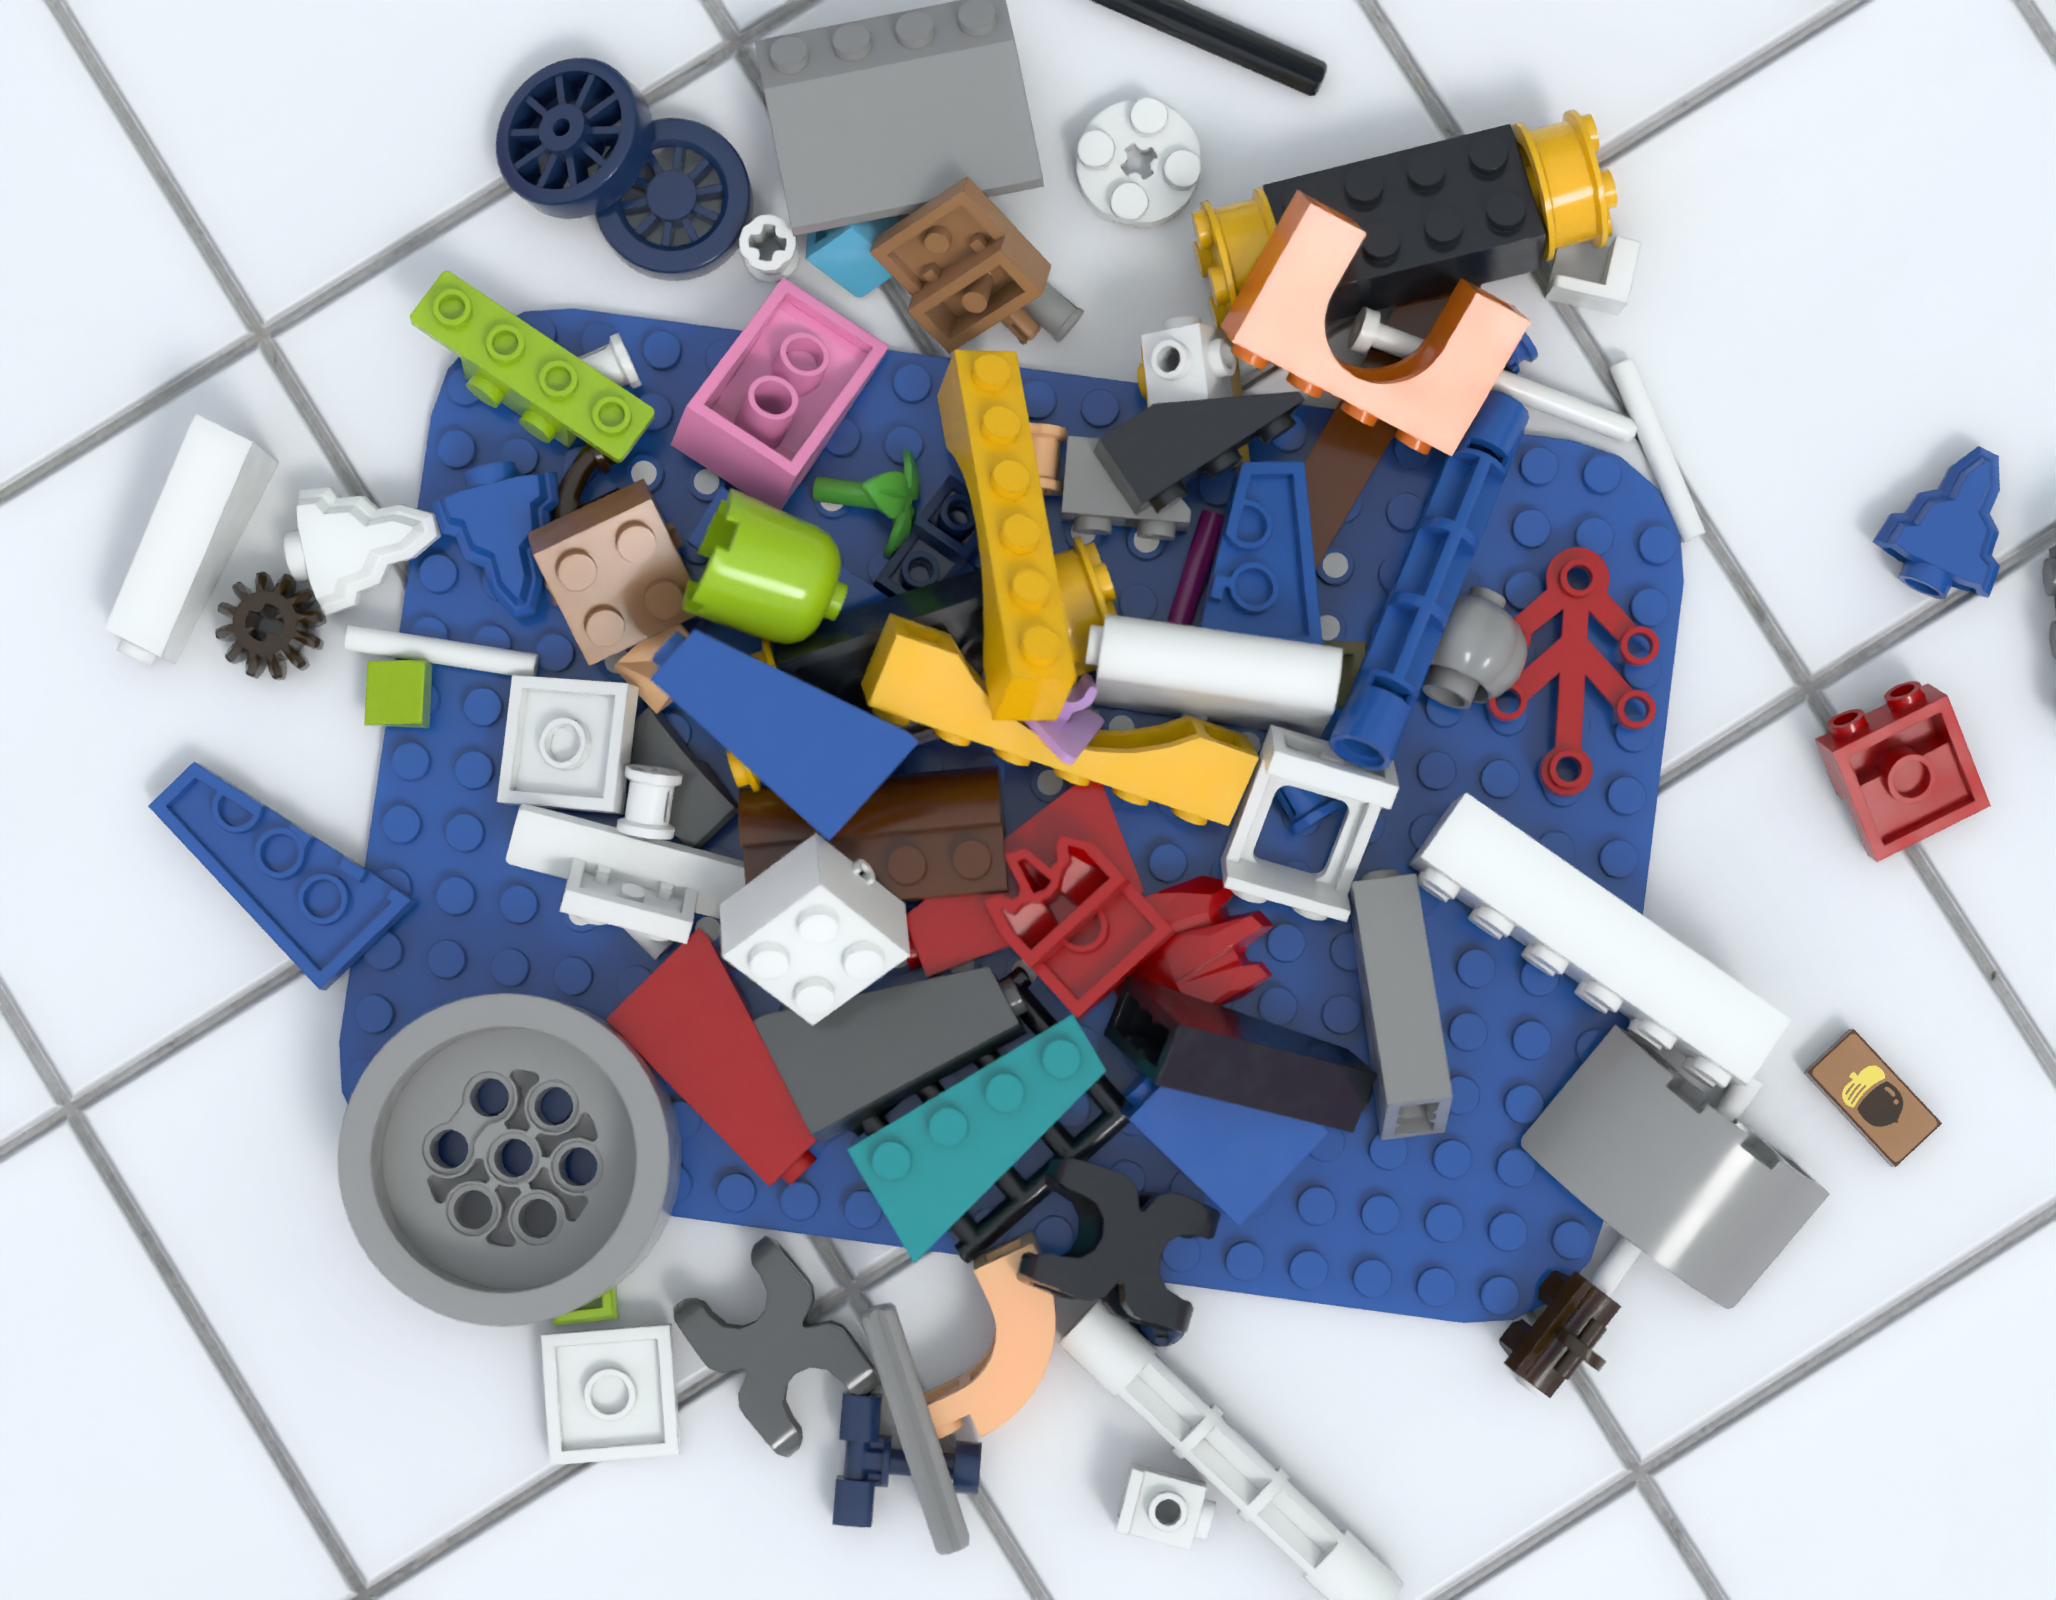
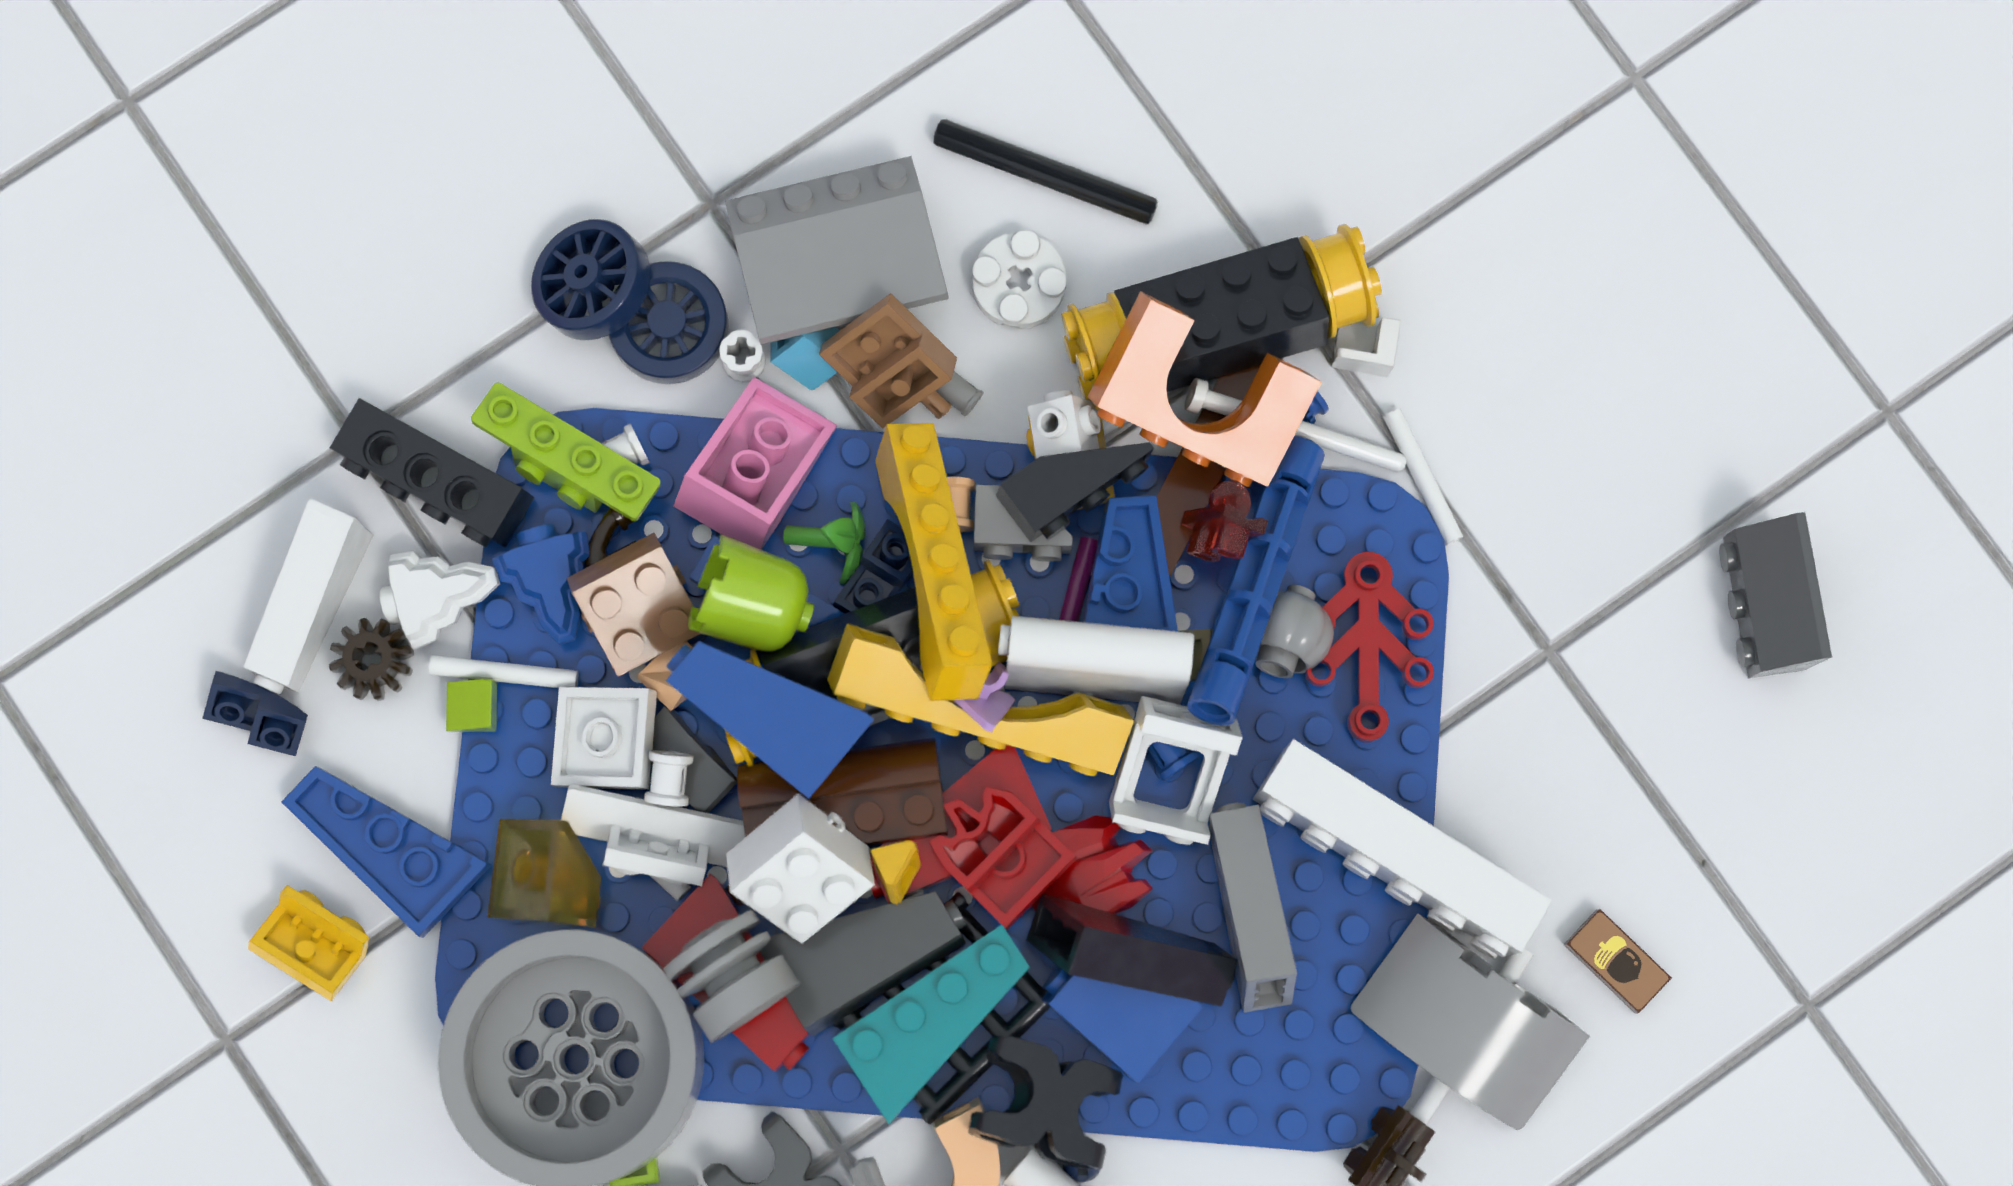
camera: 10 degrees left, 5 degrees down
(137, 696) = (247, 706): none -> dark blue slope
(181, 989) = (311, 942): none -> yellow bracket
(281, 326) = (371, 431): none -> black brick
(482, 918) = (543, 875): none -> clear yellow slope
(719, 1063) = (731, 975): none -> light grey wheel
(940, 934) = (896, 868): none -> yellow slope
(1389, 506) = (1223, 525): none -> clear red hips
(1902, 768) = (1623, 707): plate -> none
(1949, 531) = (1646, 527): blue rock -> none

